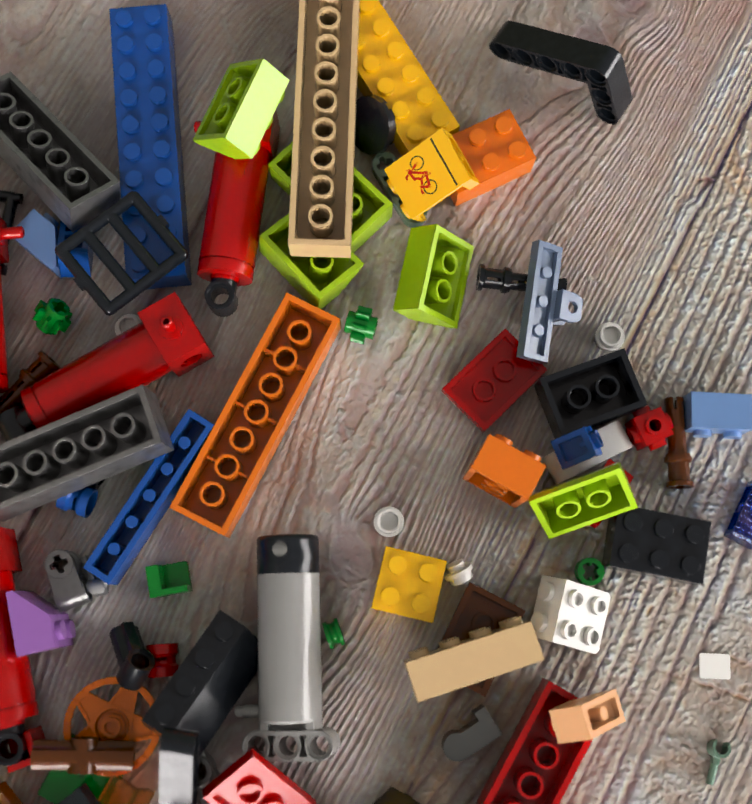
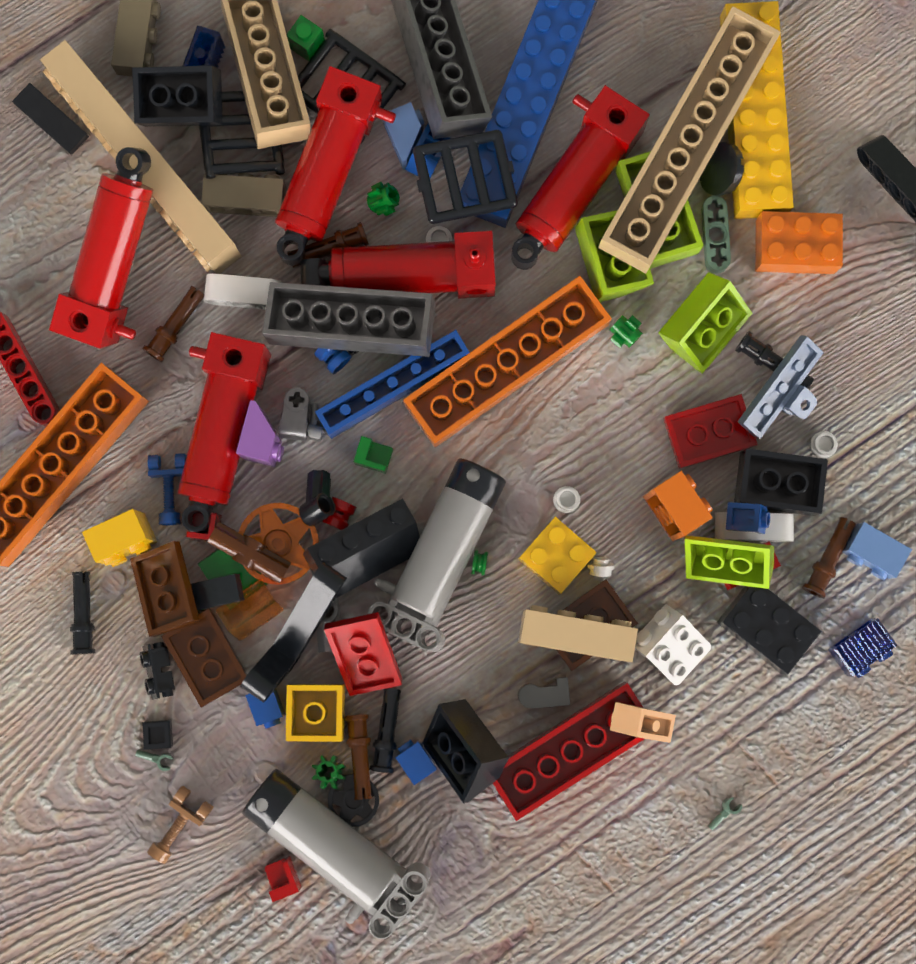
camera: 30 degrees right, 5 degrees up
(242, 109) = (620, 107): lime slope -> none
(429, 174) = (746, 237): yellow panel -> none
(598, 572) = (711, 625): green bush -> none
(640, 432) = (805, 537): red brick -> none
(714, 666) = (764, 744): white sticker -> none

